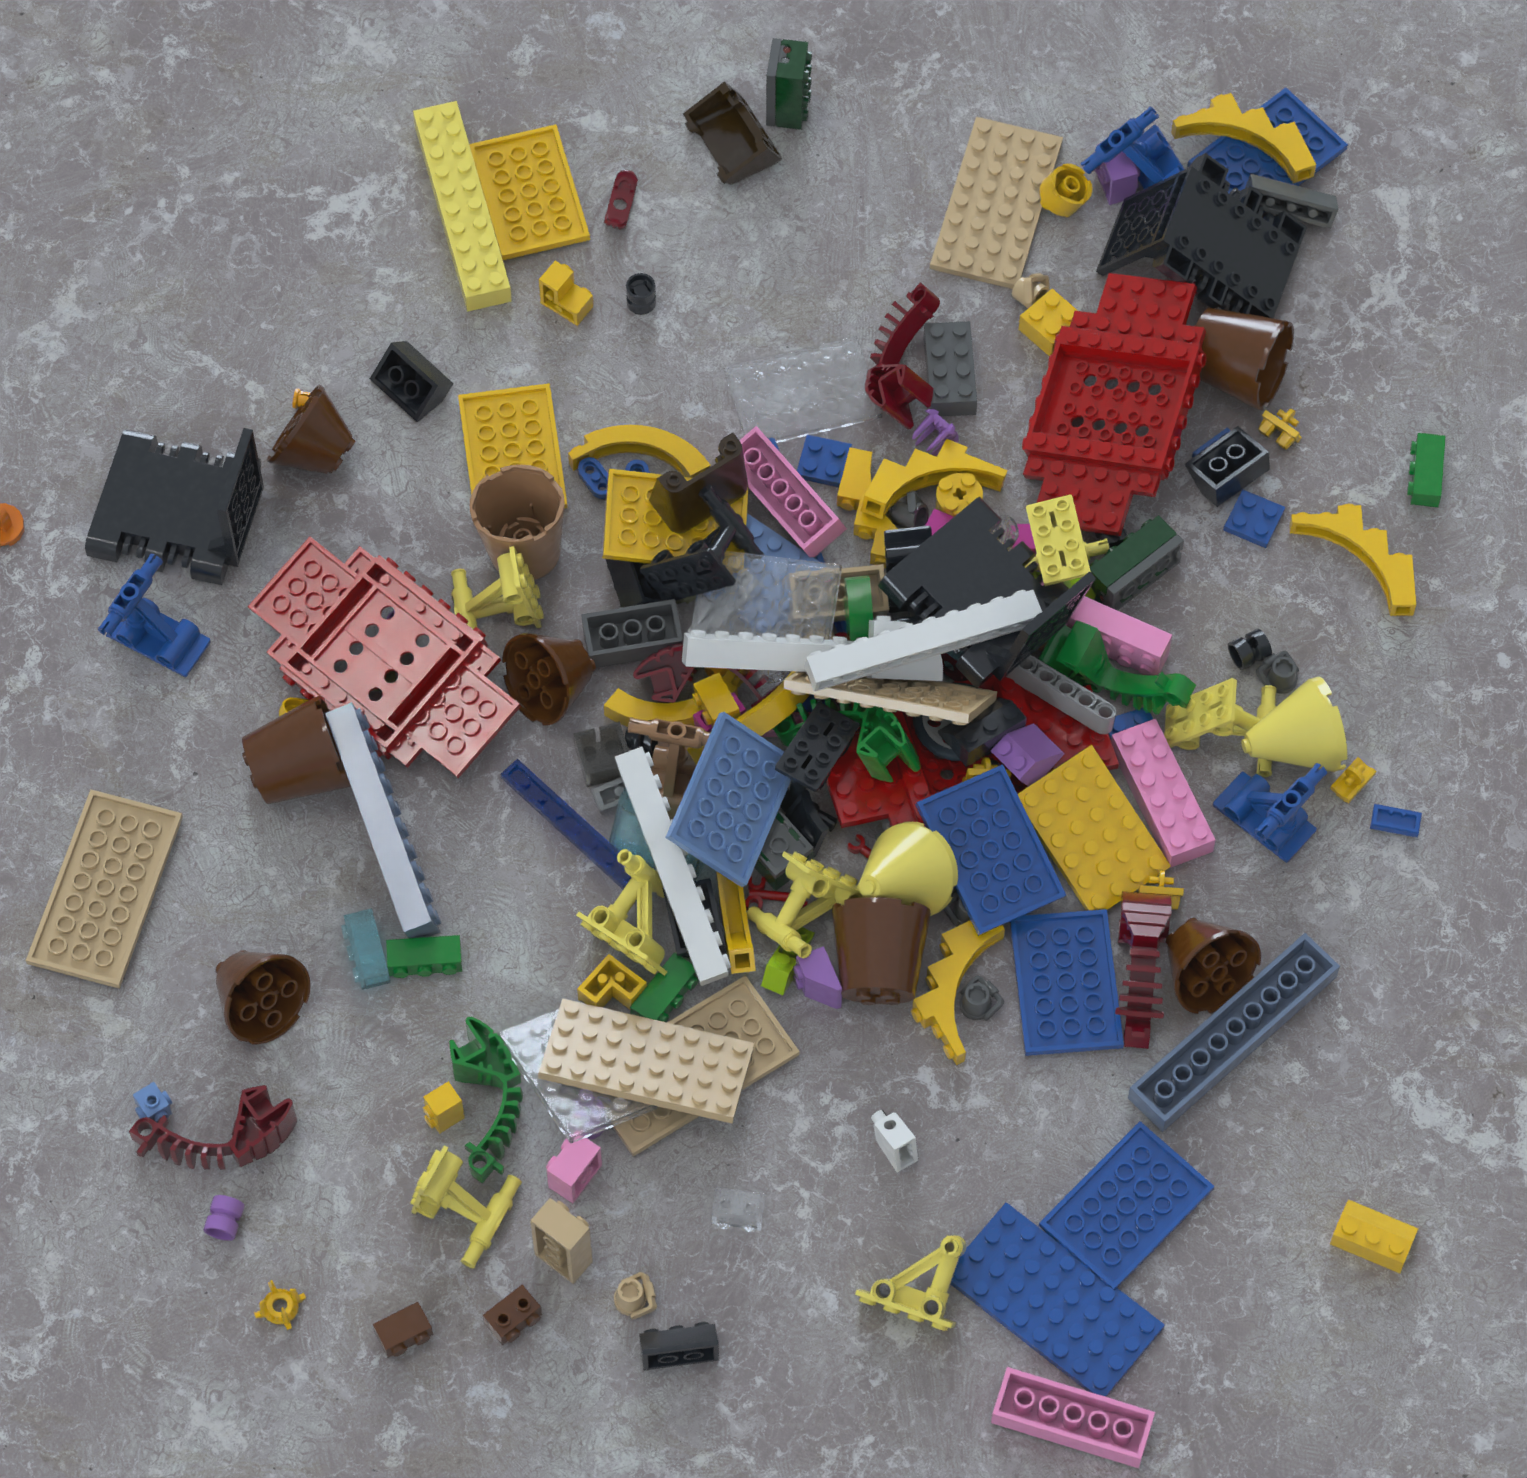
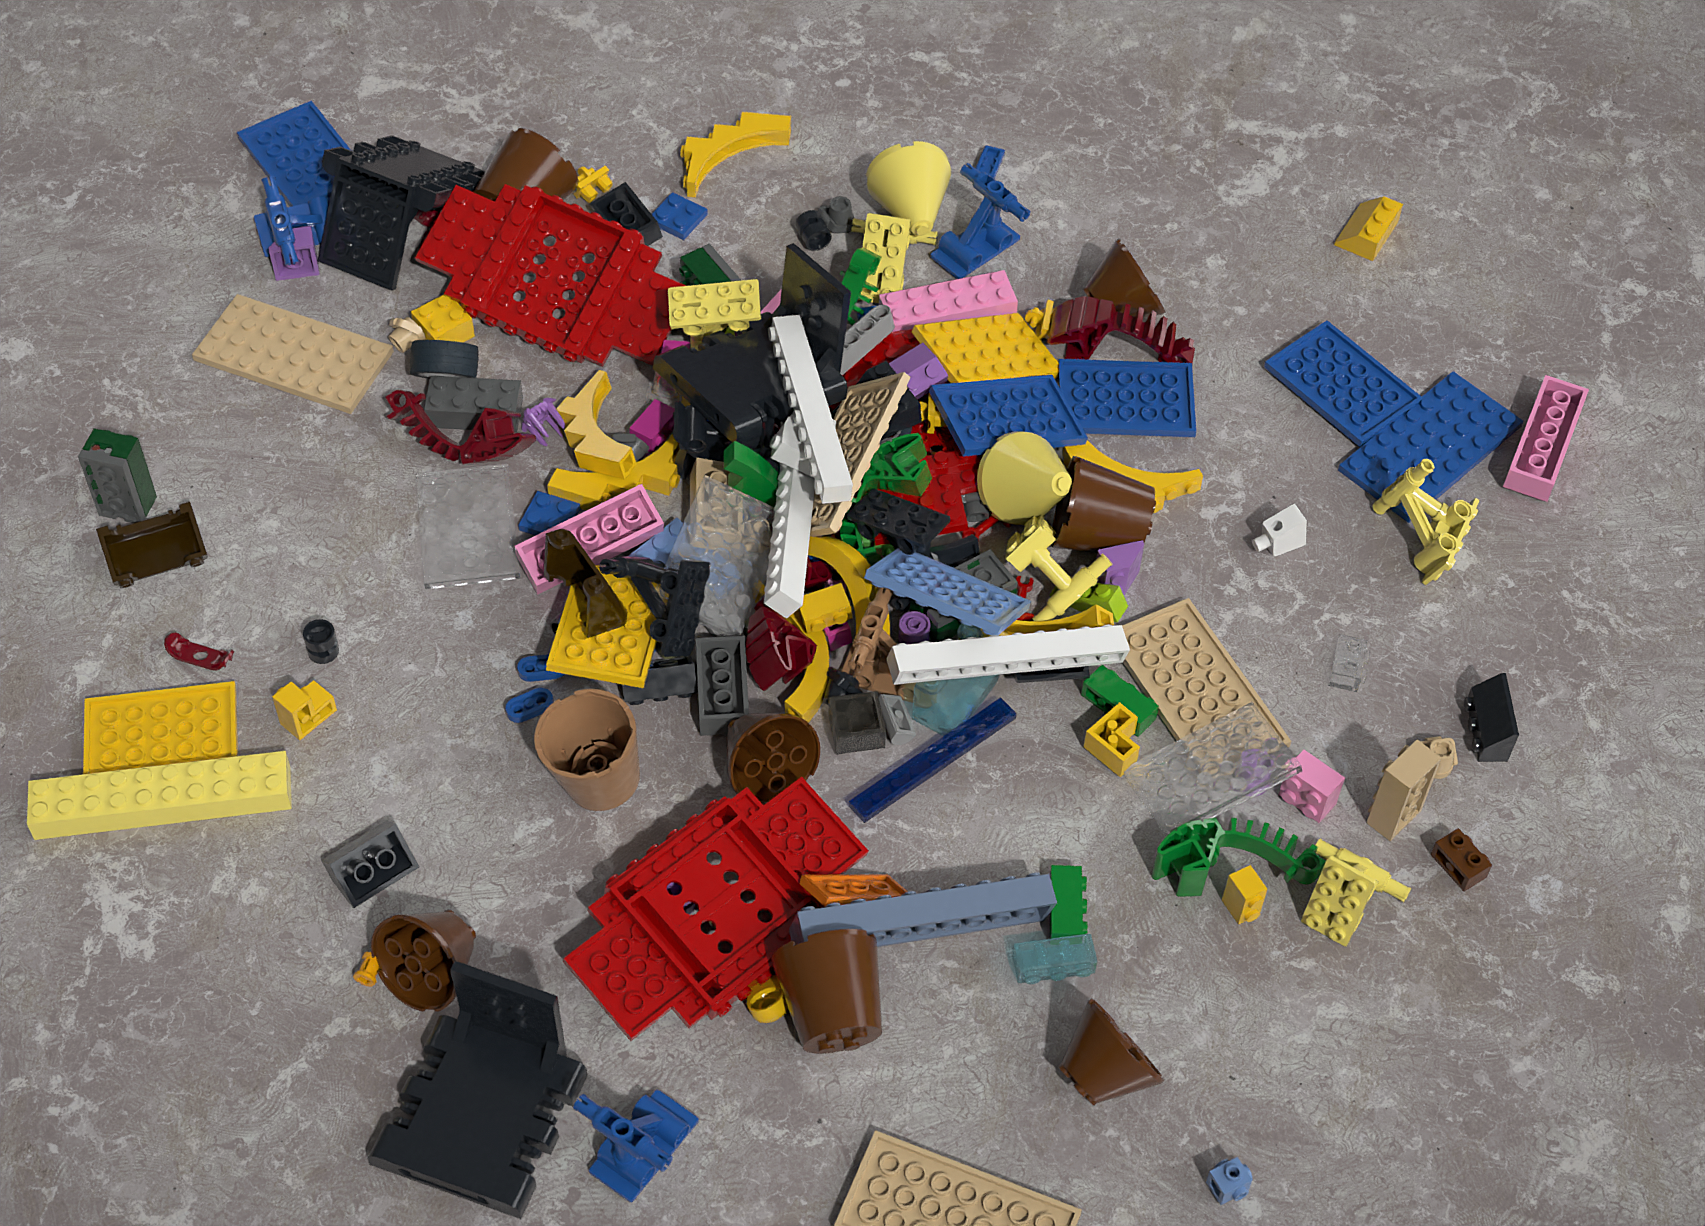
camera: 85 degrees left, 10 degrees down
(224, 1215) = (1362, 1117): medium lavender wheel -> none
(255, 1133) = (1267, 1073): dark red piece -> none
(285, 1316) = (1468, 1069): yellow piece -> none
(403, 1330) = (1483, 955): reddish brown brick -> none
(407, 766) = (847, 888): none -> orange tile
(509, 430) = (475, 779): yellow plate -> none
(514, 584) = (664, 767): light yellow plate -> none
(610, 922) = (1065, 717): light yellow plate -> none
(641, 440) = (502, 645): yellow arch -> none
(646, 1060) = (1205, 710): tan plate -> none
(957, 492) = (618, 410): yellow brick -> none
(976, 999) = (1142, 457): dark grey piece -> none
(985, 327) = (443, 359): none -> black wheel
(1065, 190) = (303, 292): yellow brick -> none
(1233, 1032) = (1190, 289): sand blue brick -> none
(1253, 127) = (280, 150): yellow arch -> none
(1297, 201) = (369, 128): dark grey brick -> none
(1352, 780) = (957, 185): yellow hips -> none
(1426, 469) = (655, 96): green brick -> none

